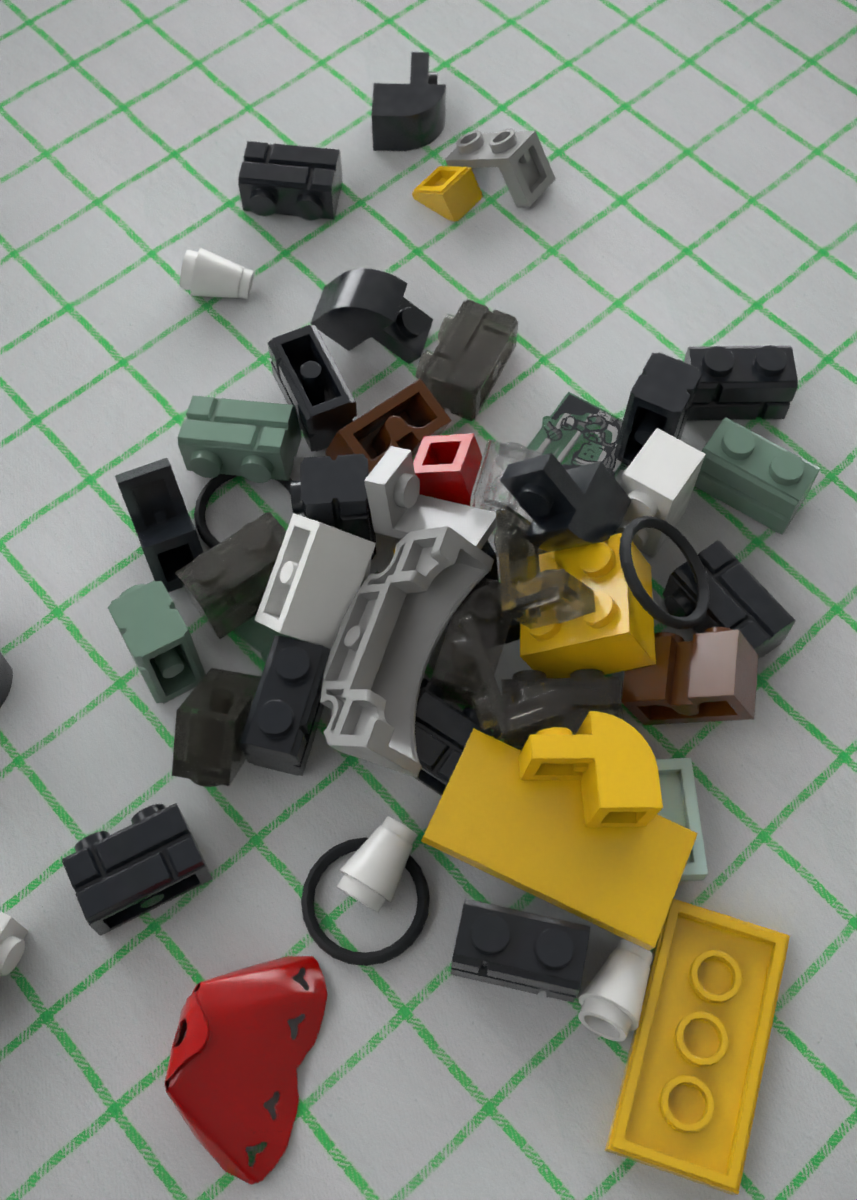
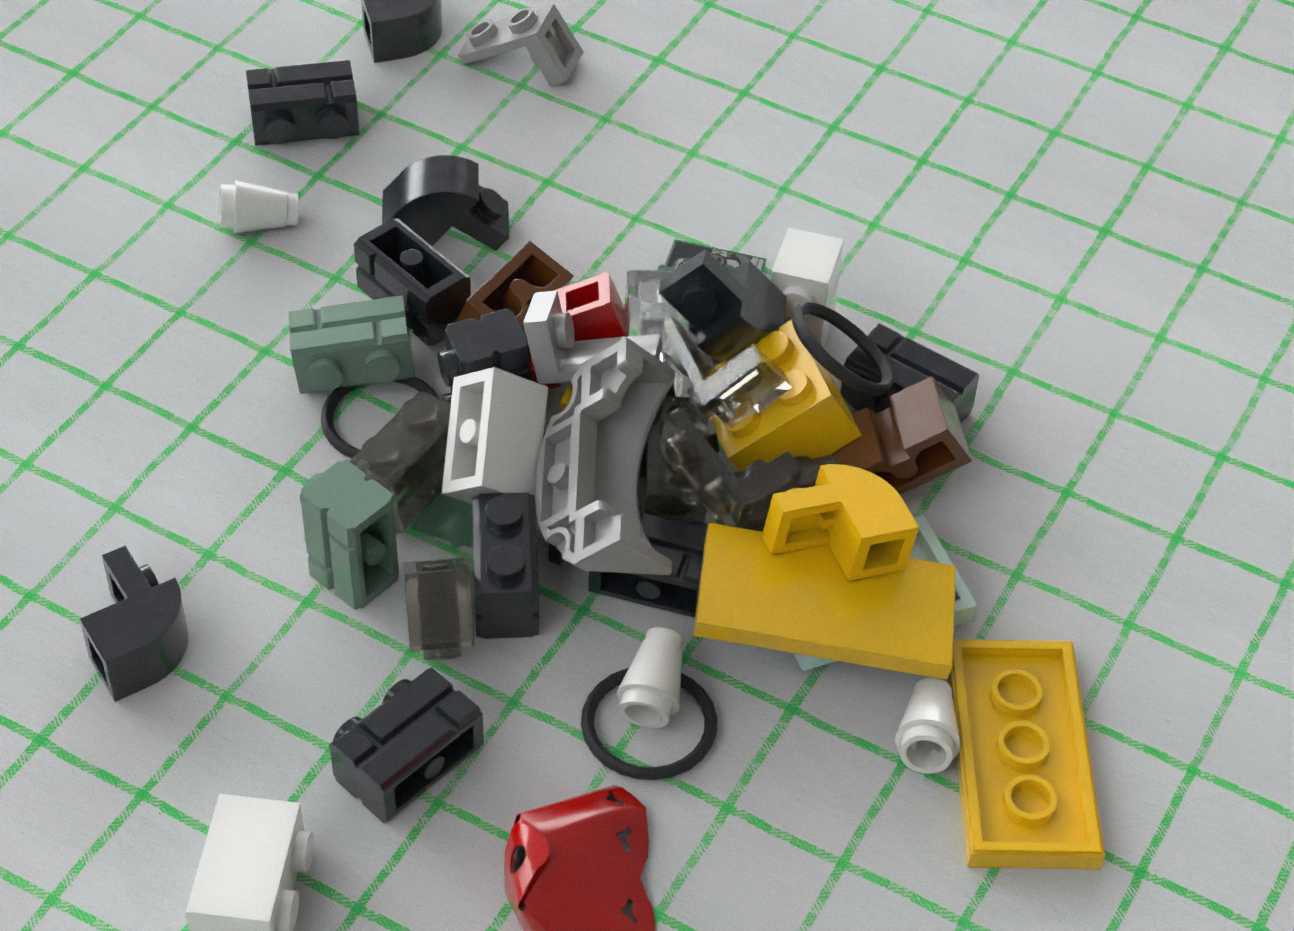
camera: 20 degrees left, 15 degrees down
(160, 520) = (296, 429): black brick -> none
(449, 191) = (475, 84): yellow slope -> none
(468, 357) = (563, 219): clear smoke brick -> none
(520, 950) = (823, 712): black brick -> none
(659, 401) = (777, 202): black brick -> none
(743, 382) = (844, 190): black brick -> none
(755, 475) = (894, 267): sand green brick -> none

